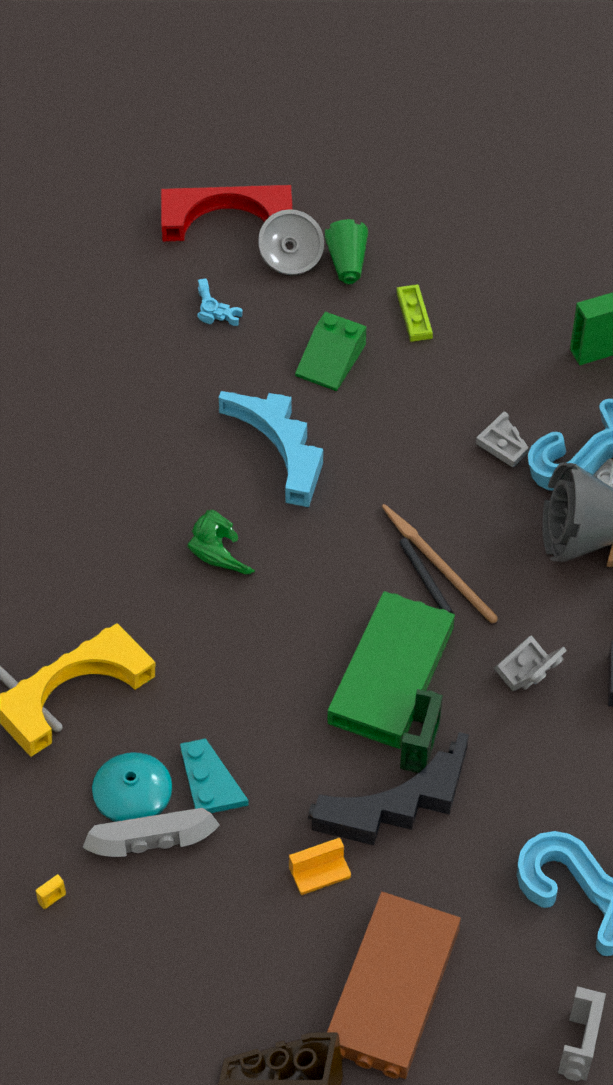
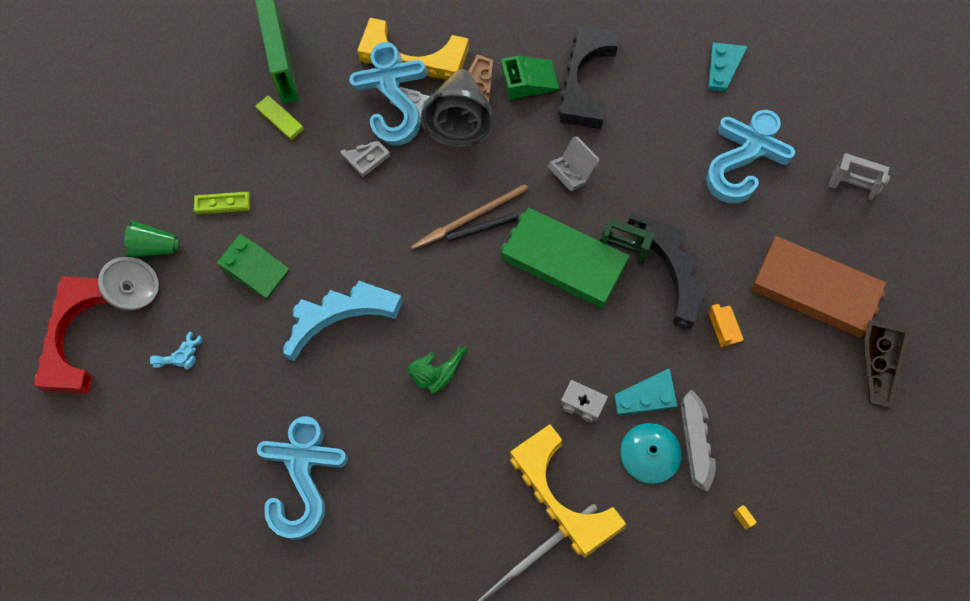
camera: 80 degrees left, 15 degrees up
(102, 431) = (299, 458): none -> medium azure piece
(192, 703) = (575, 394): none -> light grey brick
(545, 348) = (279, 117): none -> lime tile

